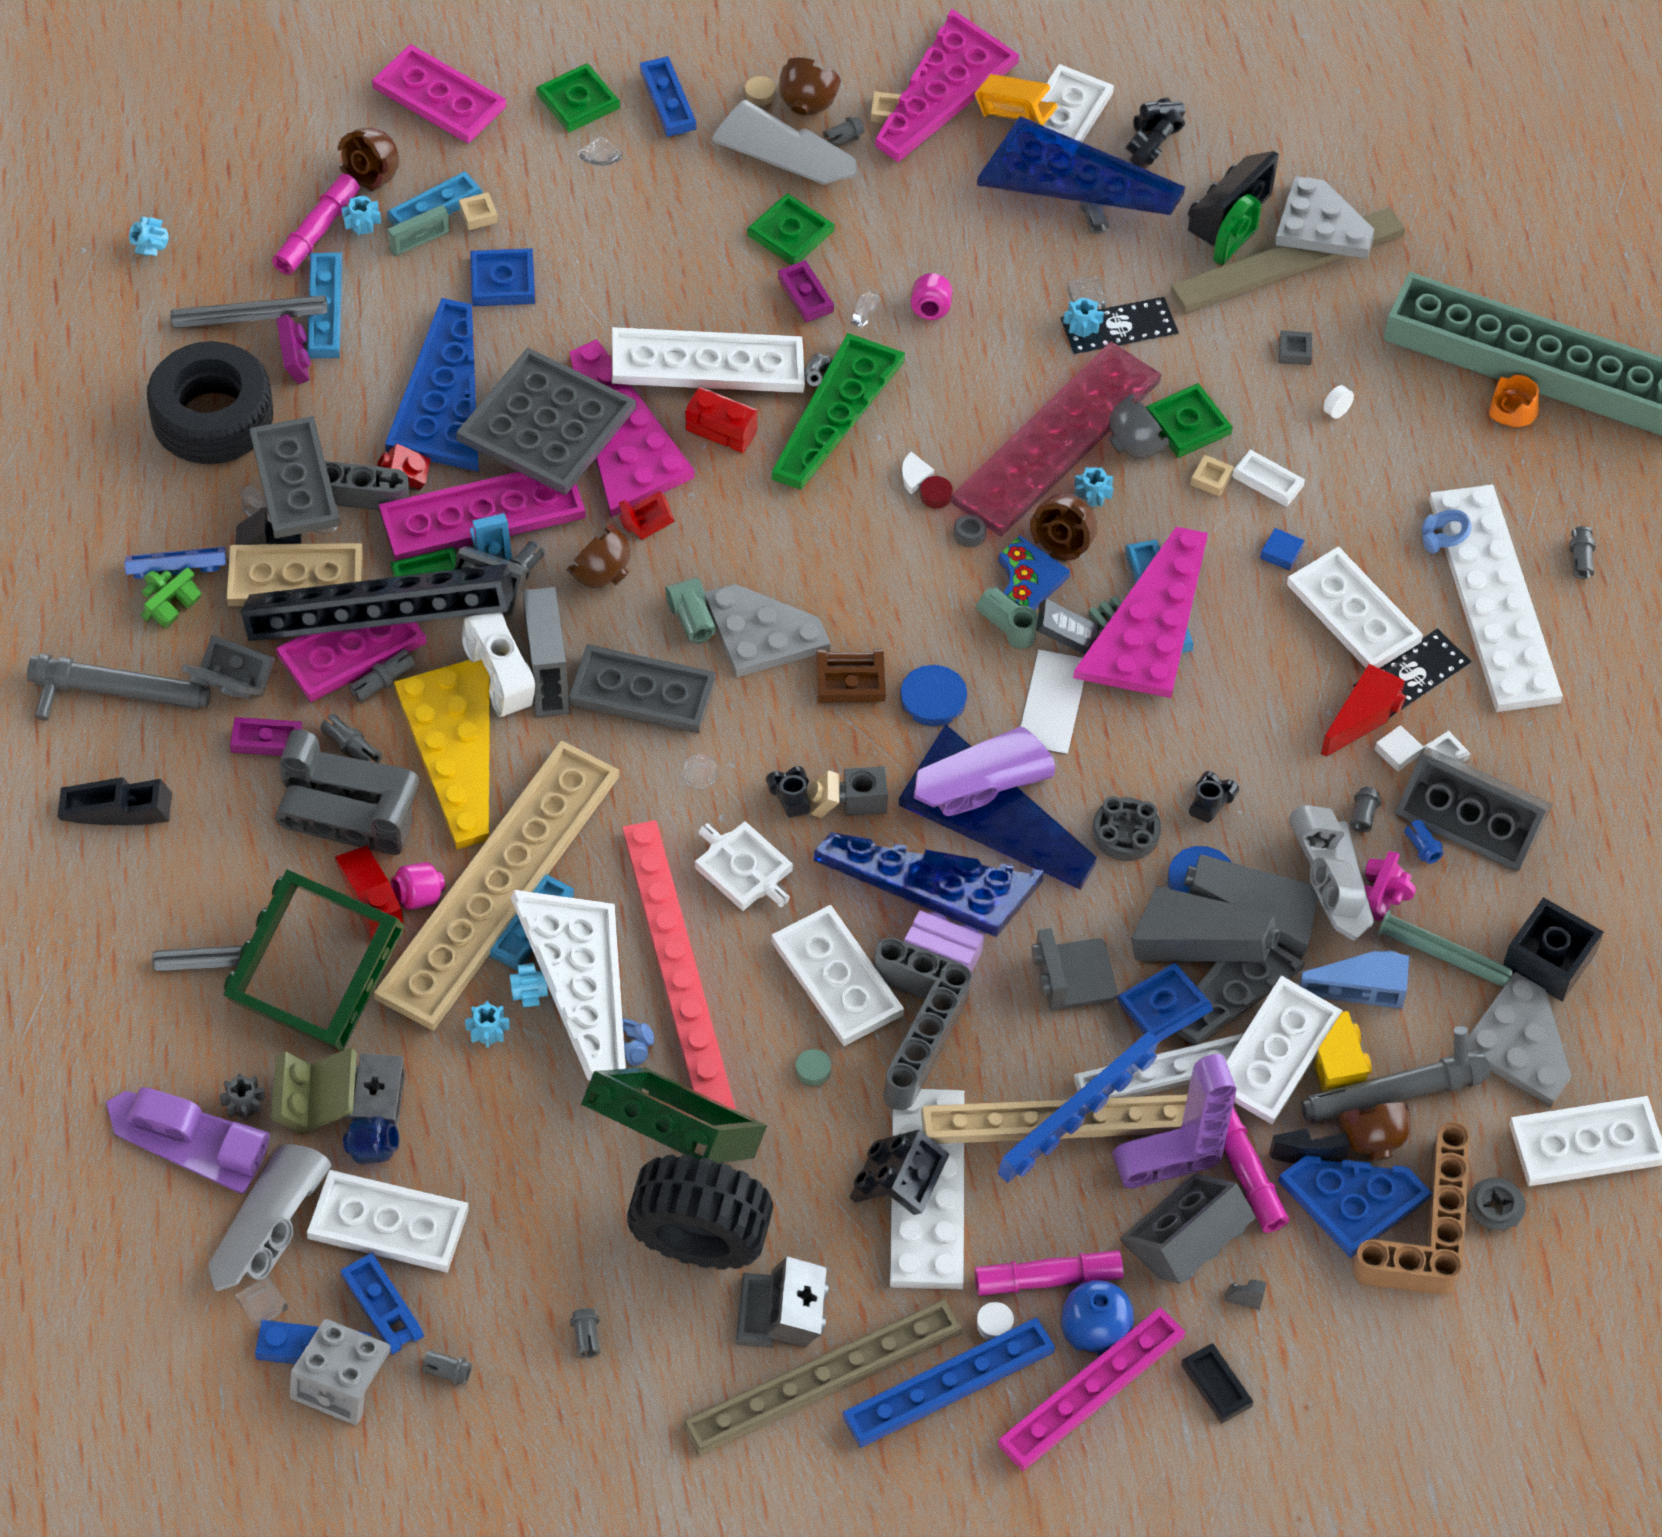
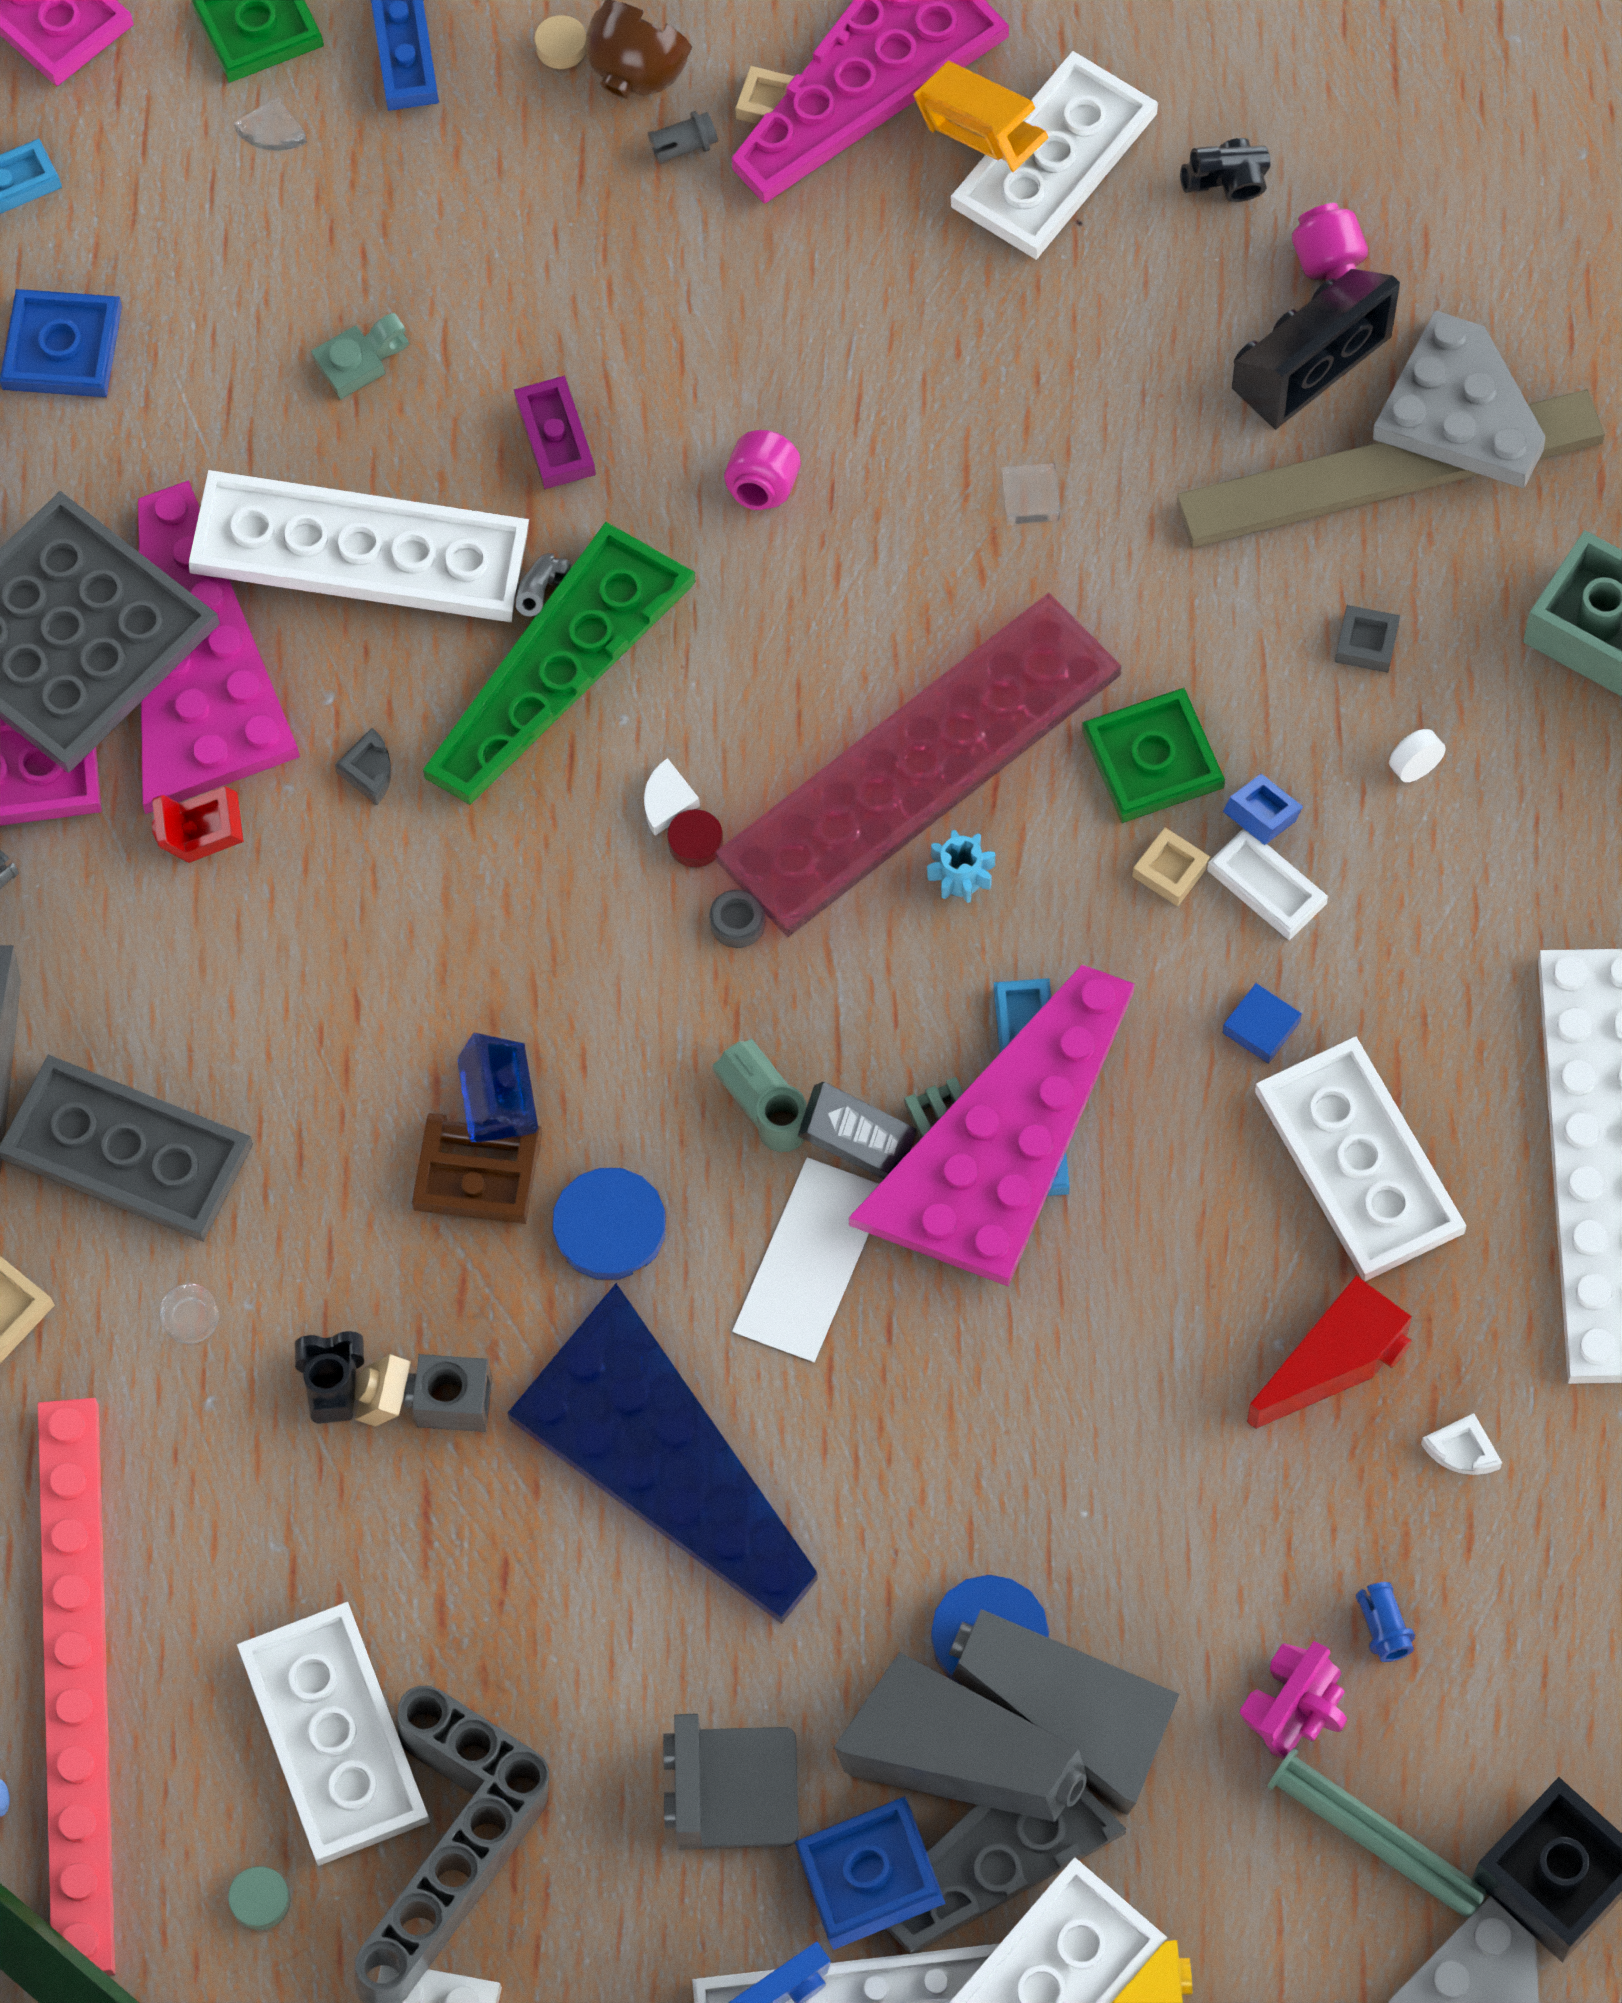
camera: 15 degrees right, 10 degrees up
(478, 211) = (44, 217): tan plate -> none
(602, 560) = (104, 902): reddish brown cylinder -> none
(680, 267) = (355, 359): none -> sand green plate
(689, 603) = (234, 998): sand green piece -> none
(721, 420) = (359, 661): red brick -> none
(736, 477) = (367, 766): none -> dark grey tile
(743, 865) = (221, 1504): white plate -> none
(762, 630) = (349, 1061): light grey plate -> none
(772, 141) = (562, 147): light grey panel -> none
(790, 229) = (557, 310): green tile -> none
(852, 631) = (496, 1089): none -> clear blue slope
(866, 302) = (644, 473): clear tile -> none
(935, 880) = (542, 1586): clear blue wing -> none
(946, 939) = (524, 1701): lavender brick -> none
(983, 770) = (650, 1390): medium lavender panel -> none
(1031, 573) = (823, 1018): blue tile -> none
(1058, 166) = (1027, 252): clear blue wing -> none
(1064, 526) = (893, 937): reddish brown cylinder -> none
(1083, 317) = (1011, 526): medium azure gear -> none
(1095, 217) = (1074, 331): dark grey pin -> none
(1126, 325) = (1075, 556): black sticker -> none
(1126, 828) = (881, 1521): dark grey tile -> none
(1135, 430) = (1052, 769): dark grey cylinder -> none
(1145, 147) = (1188, 226): black plate -> none
(1211, 796) = (1037, 1484): black plate -> none
(1227, 146) = (1329, 242): none -> dark pink head
(1237, 228) = (1309, 404): green tile -> none
(1257, 439) = (1262, 809): none -> blue tile
(1333, 868) = (1213, 1665): light grey panel -> none
(1364, 979) = (1228, 1873): medium blue slope -> none
(1366, 803) = (1296, 1544): dark grey pin -> none
(1398, 748) = (1382, 1433): white tile -> none
(1426, 665) = (1459, 1279): black sticker -> none
(1433, 541) = (1540, 1010): medium blue piece -> none
(1473, 808) = (1484, 1571): dark grey slope -> none

